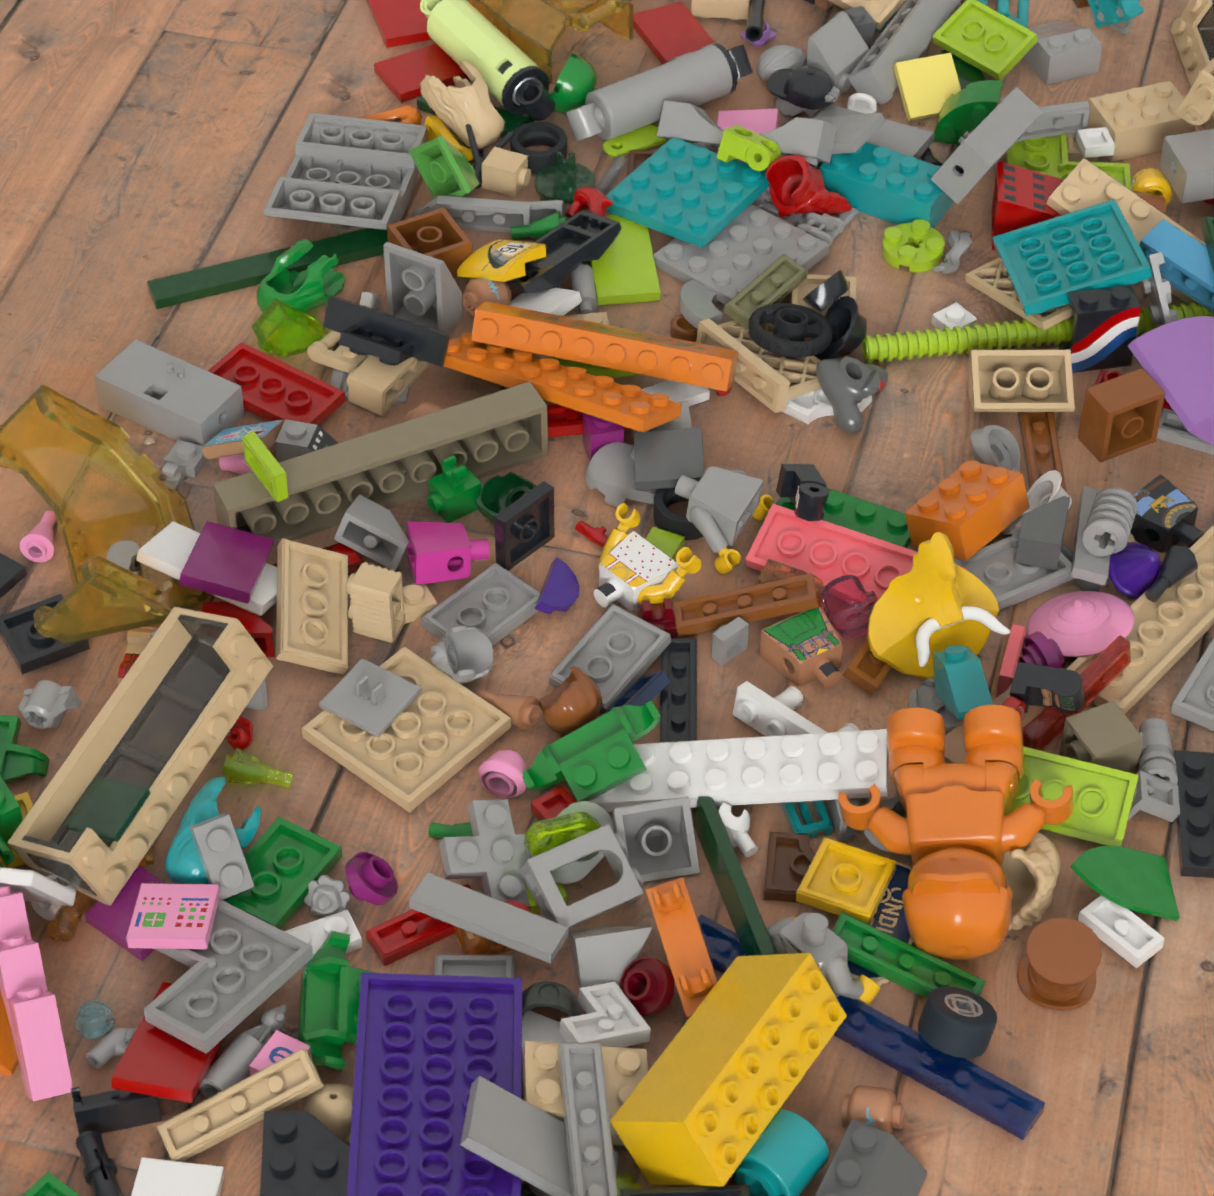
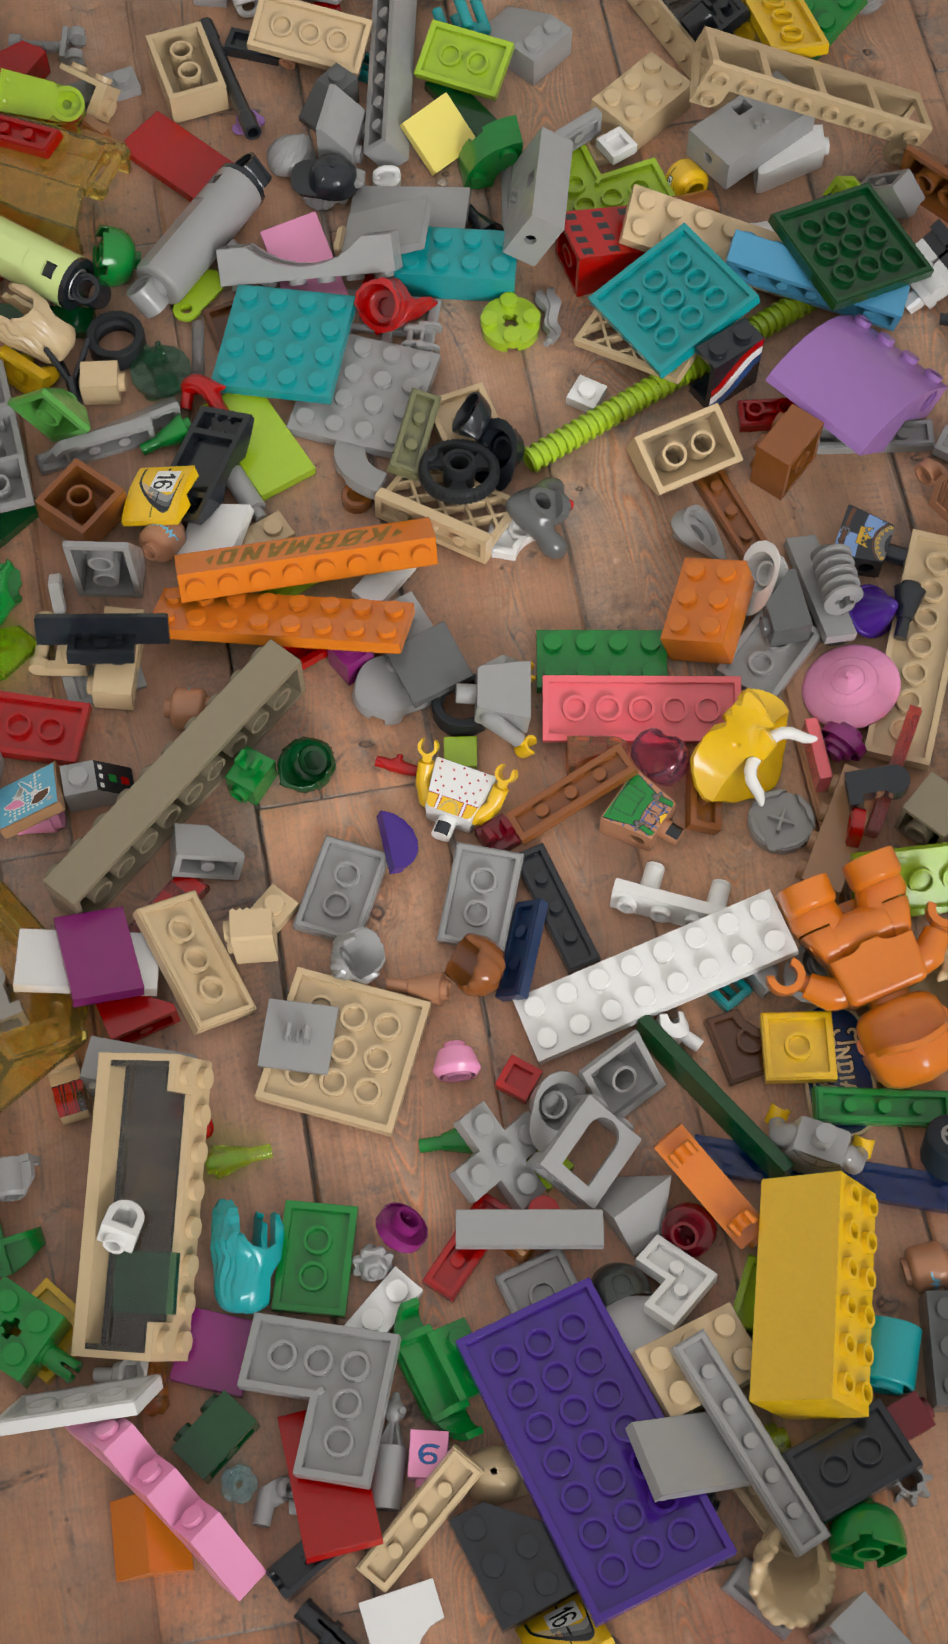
camera: 25 degrees left, 20 degrees up
(96, 972) = (214, 1436): none -> dark green brick
(111, 752) = (121, 1226): none -> white plate
(173, 916) = (261, 1359): bright pink tile -> none
(222, 855) = (271, 1280): light grey plate -> none
(265, 466) = (87, 847): lime tile -> none
(442, 551) = (276, 849): dark pink torso -> none
(524, 526) = (337, 796): black plate -> none
(558, 830) = (542, 1129): clear neon green plate -> none
(596, 754) = (529, 1014): green plate -> none
(730, 641) = (572, 834): light grey plate -> none
(748, 147) = (326, 281): lime leg -> none
(805, 489) = (567, 652): black leg -> none
(960, 680) = (799, 805): teal slope -> none
(1159, 293) = (769, 324): light grey wing -> none

